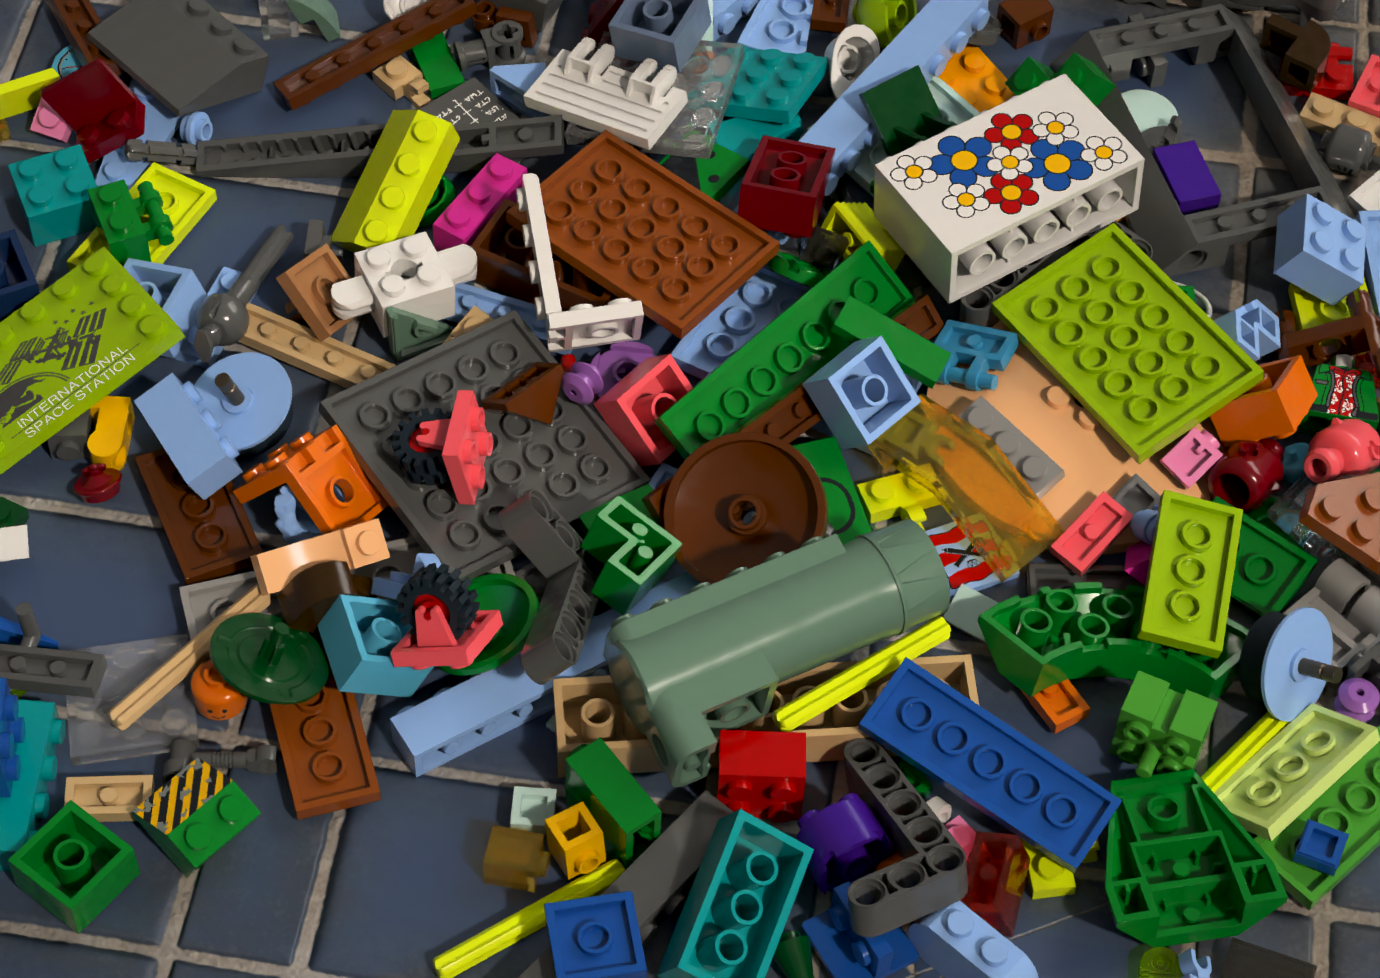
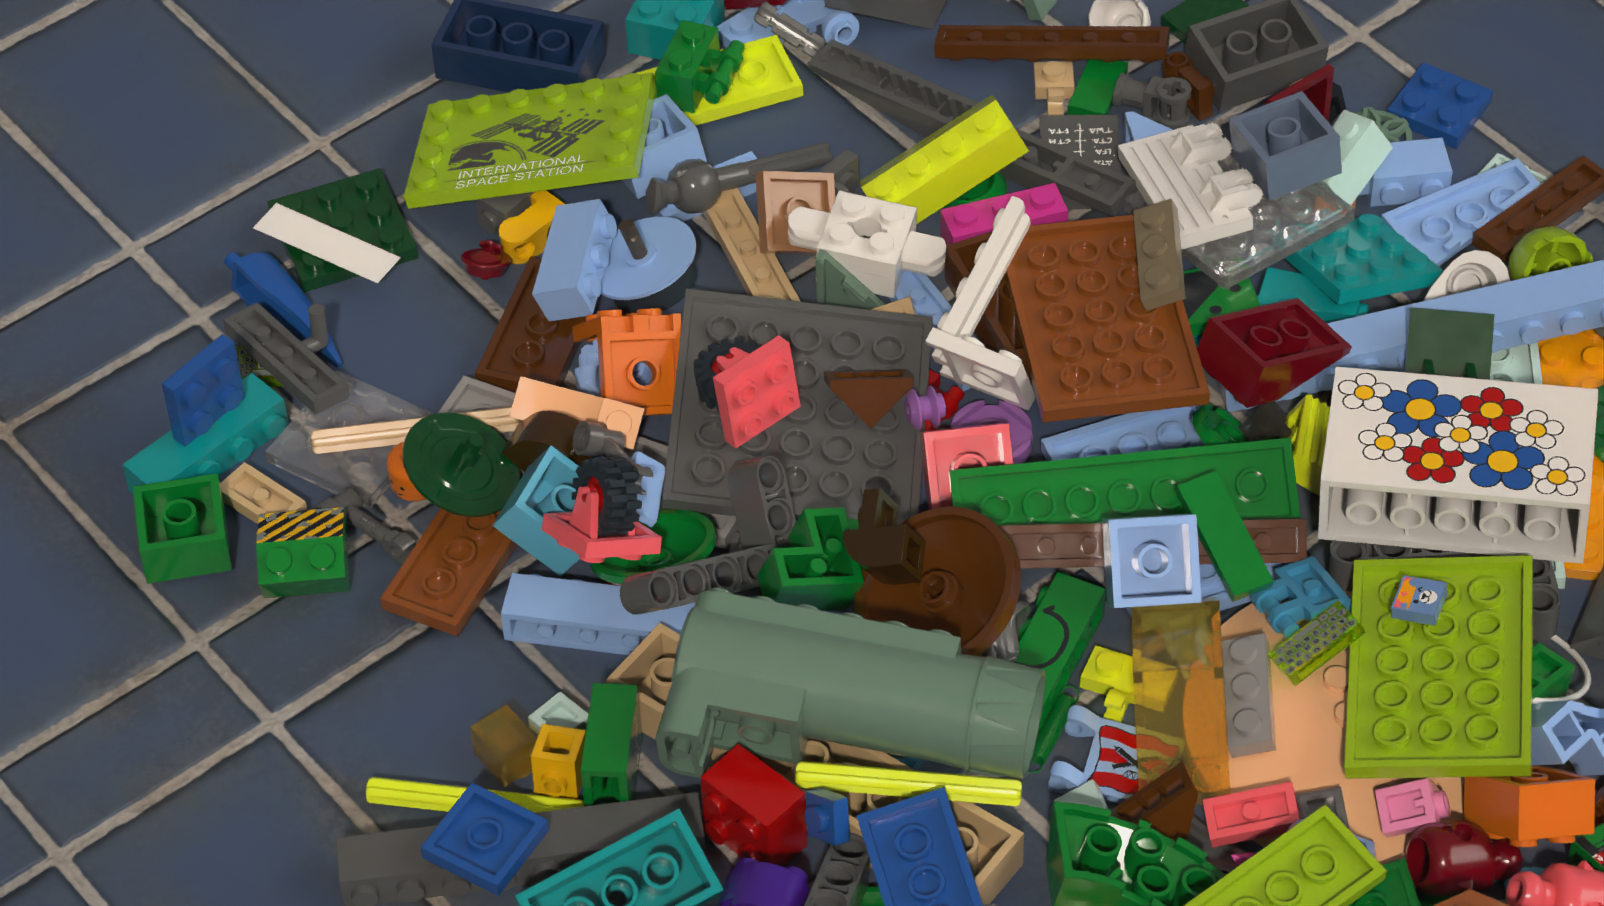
camera: 45 degrees right, 5 degrees down
(370, 567) = (593, 440): none -> dark grey brick
(649, 159) = (1159, 254): none -> dark tan plate
(681, 512) = (880, 546): none -> dark brown brick
(832, 739) = (827, 816): none -> blue plate
(1027, 379) = (1316, 643): none -> clear neon green tile
(1031, 566) = (1164, 803): none -> reddish brown slope
(1073, 302) = (1419, 600): none -> medium blue tile

